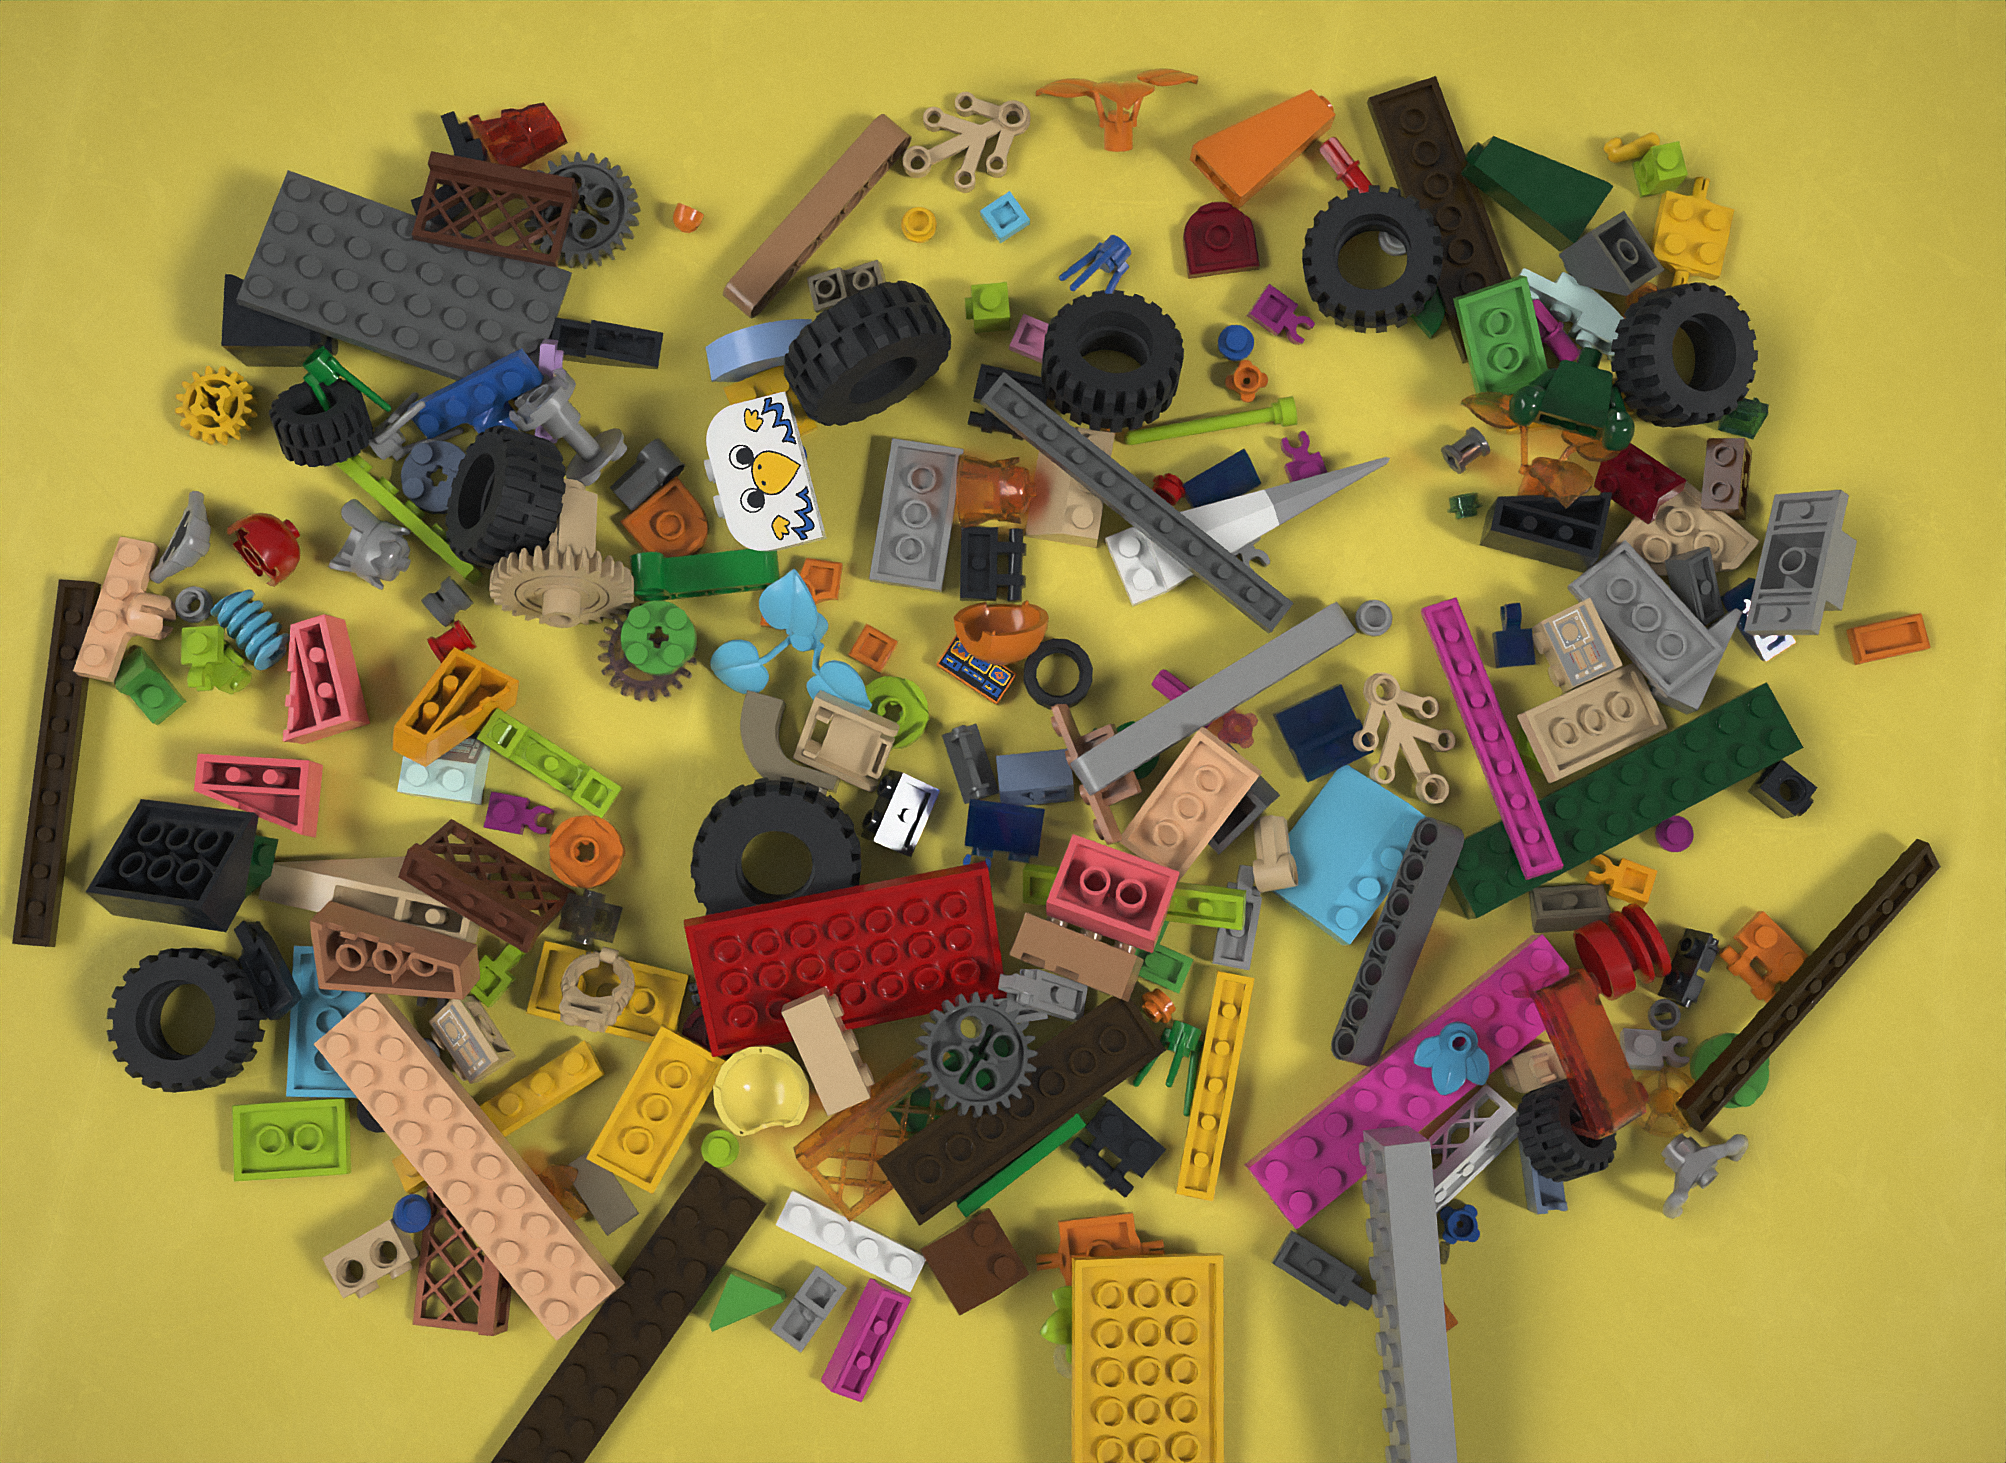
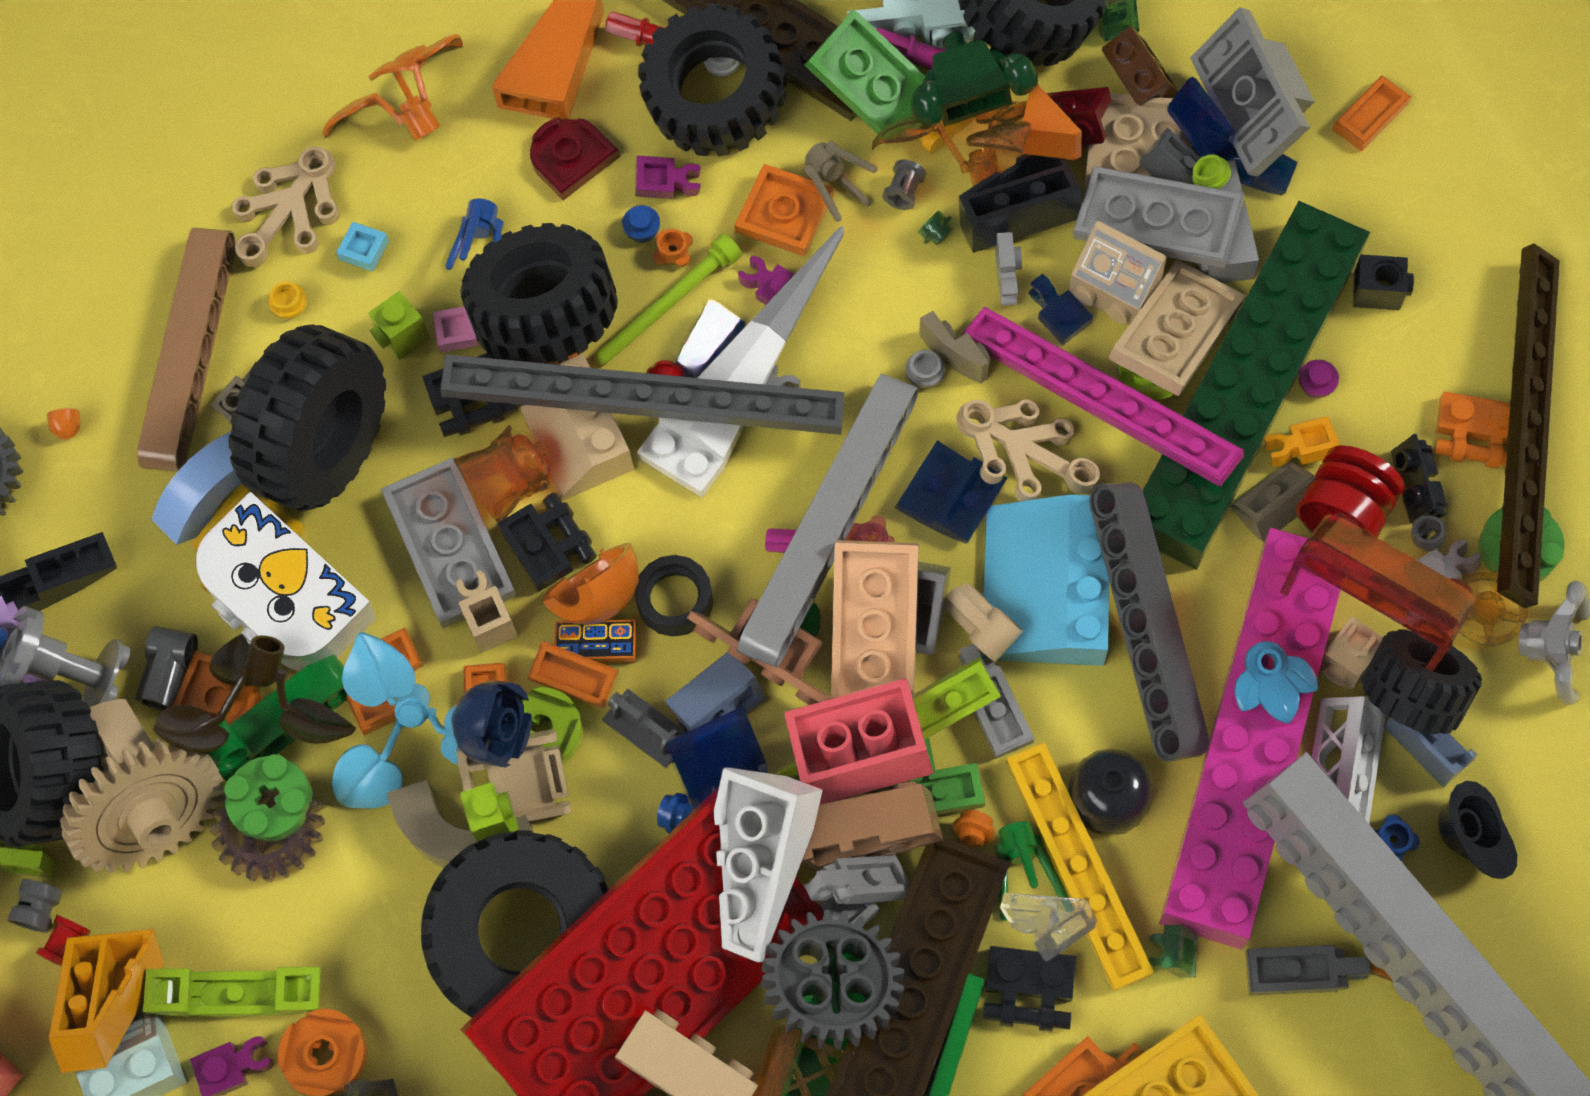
camera: 30 degrees left, 15 degrees down
(722, 598) = (257, 666): none -> dark brown plant
(809, 761) = (488, 811): none -> lime brick
(851, 698) = (492, 723): none -> dark blue cylinder
(899, 812) = (608, 813): bracket -> none
(906, 596) = (486, 614): none -> tan brick
(942, 686) = (573, 674): none -> orange tile
(947, 845) = (673, 811): none -> blue plate
(990, 924) = (762, 839): none -> white wedge
(1168, 1119) = (1054, 920): none -> clear slope
(1241, 1198) = (1178, 951): none -> clear green tile
(1277, 1046) = (1111, 791): none -> black cylinder
(1355, 407) = (782, 210): none -> orange plate
(1410, 628) = (960, 353): none -> dark tan slope
(1415, 390) = (825, 163): none -> dark tan plant
(1432, 315) = (796, 102): green tile -> none
(1501, 572) = (1007, 261): none -> light grey plate
(1525, 1265) = (1476, 831): none -> black piece
(1611, 489) = (1051, 129): none -> orange slope
(1714, 612) = (1211, 172): none -> lime plate
(1740, 560) = (1201, 120): none -> clear blue slope

